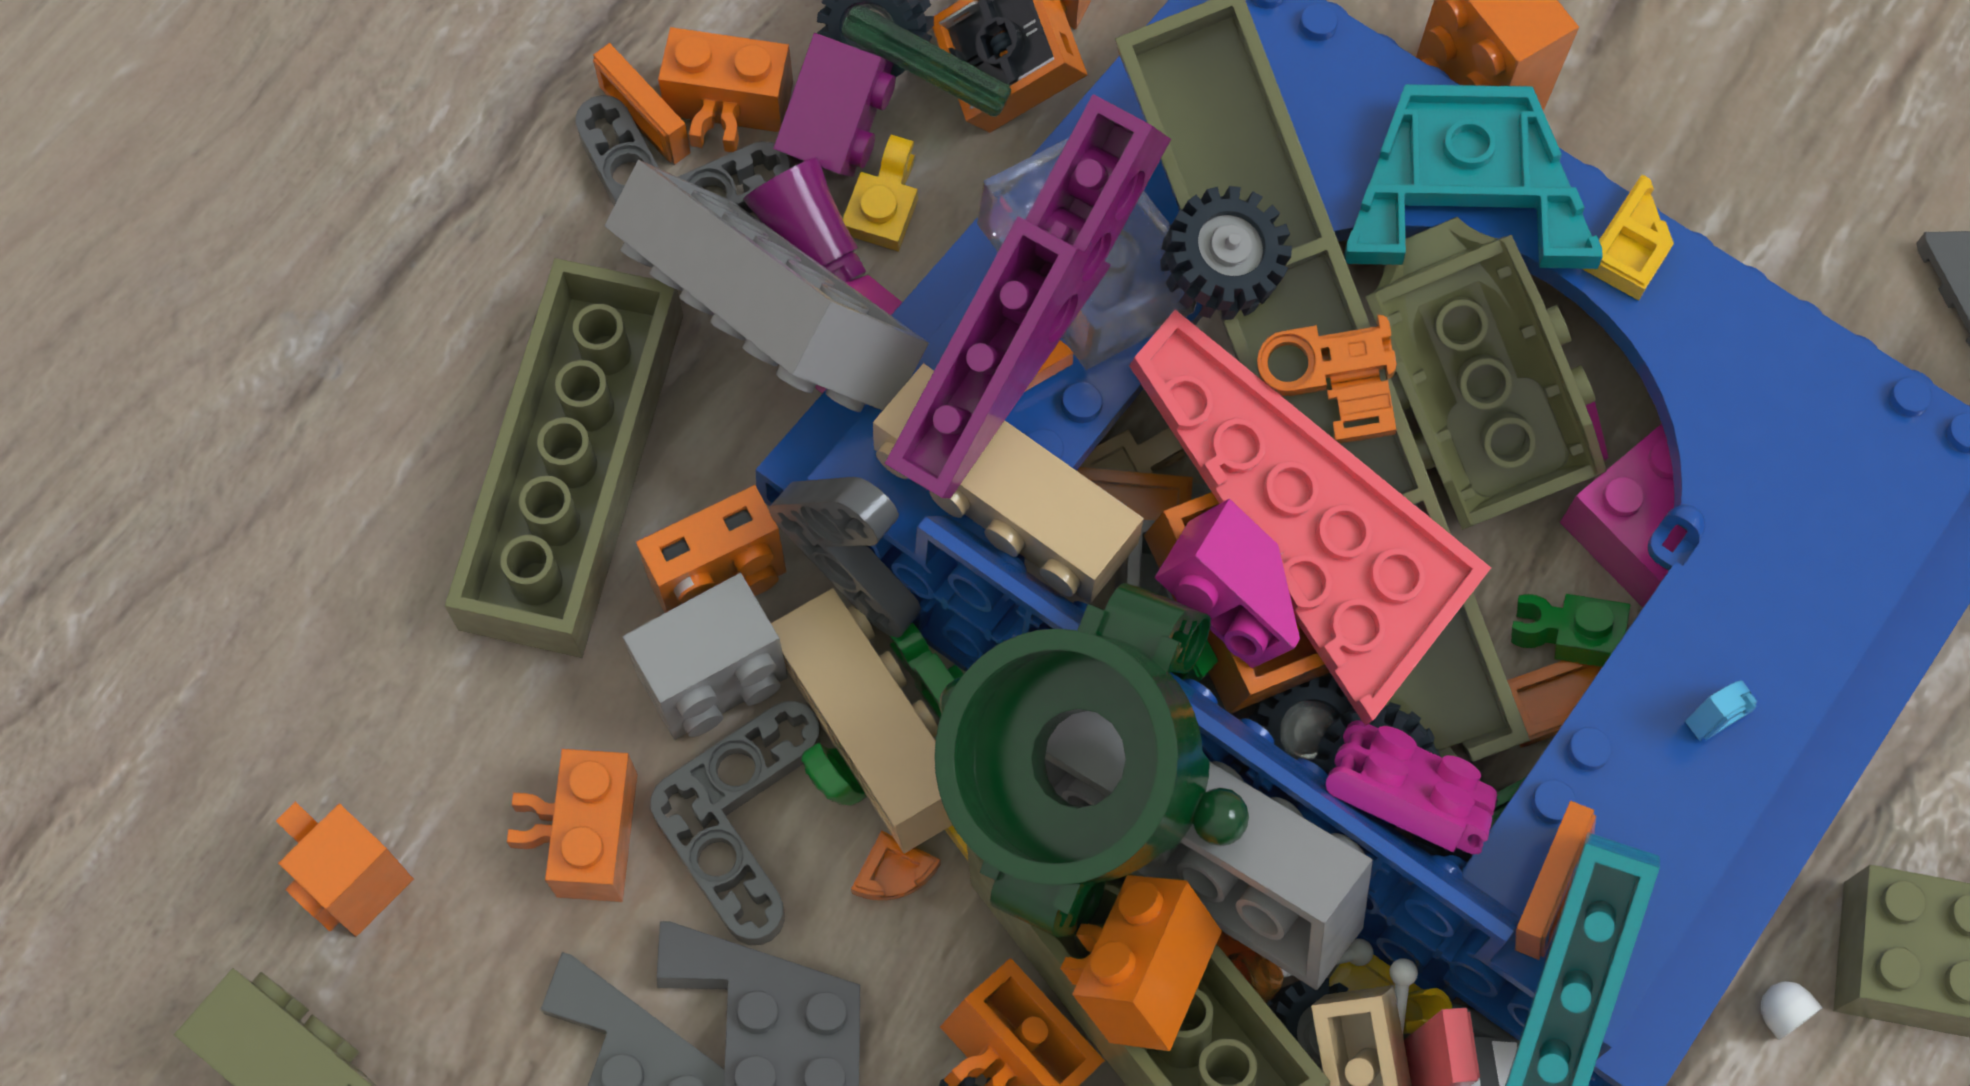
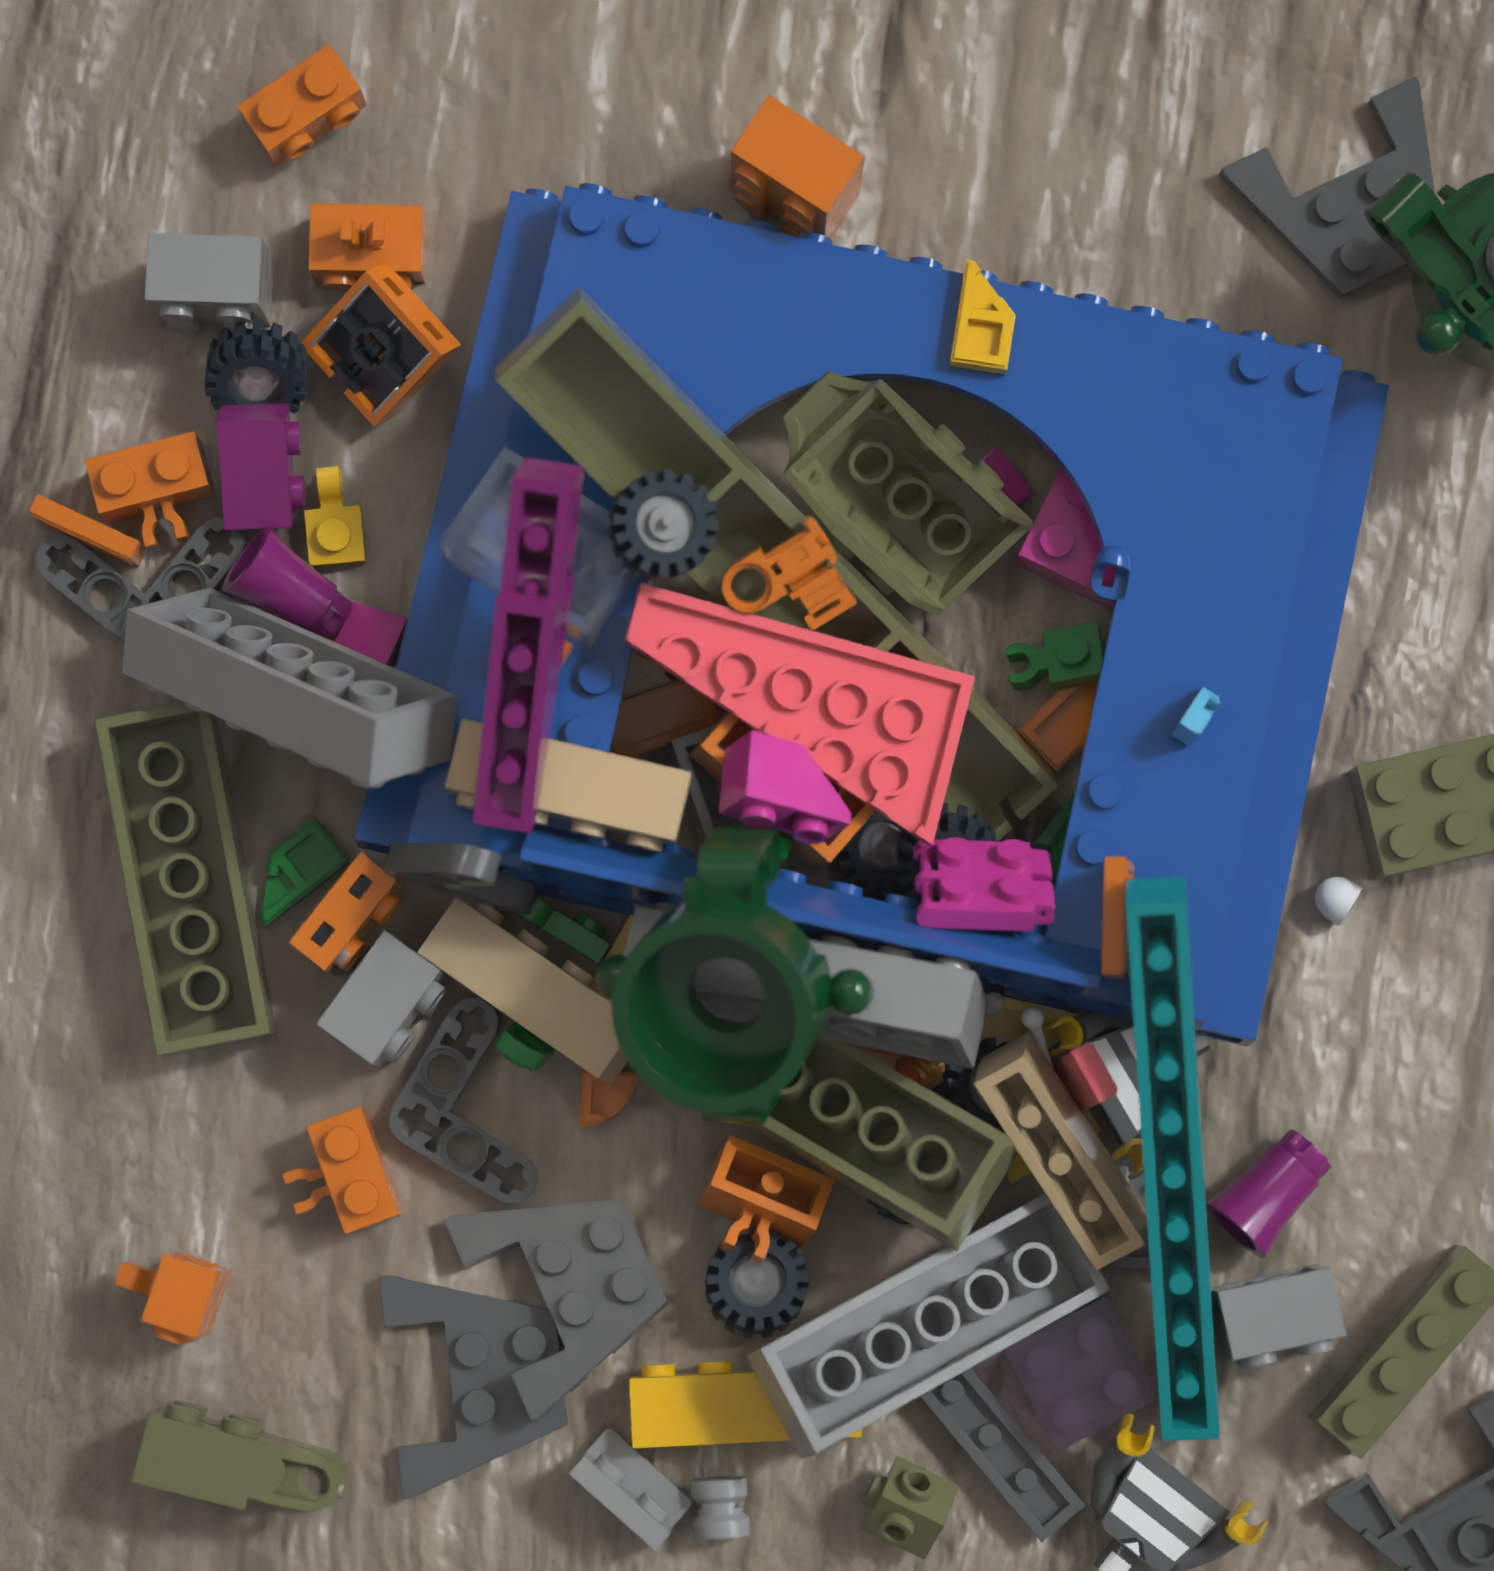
camera: 25 degrees left, 15 degrees up
(680, 496) = (298, 869): none -> green tile
(926, 60) = (321, 399): clear green axle -> none
(1144, 962) = (837, 1111): orange brick -> none
(1471, 152) = (819, 306): teal wing -> none

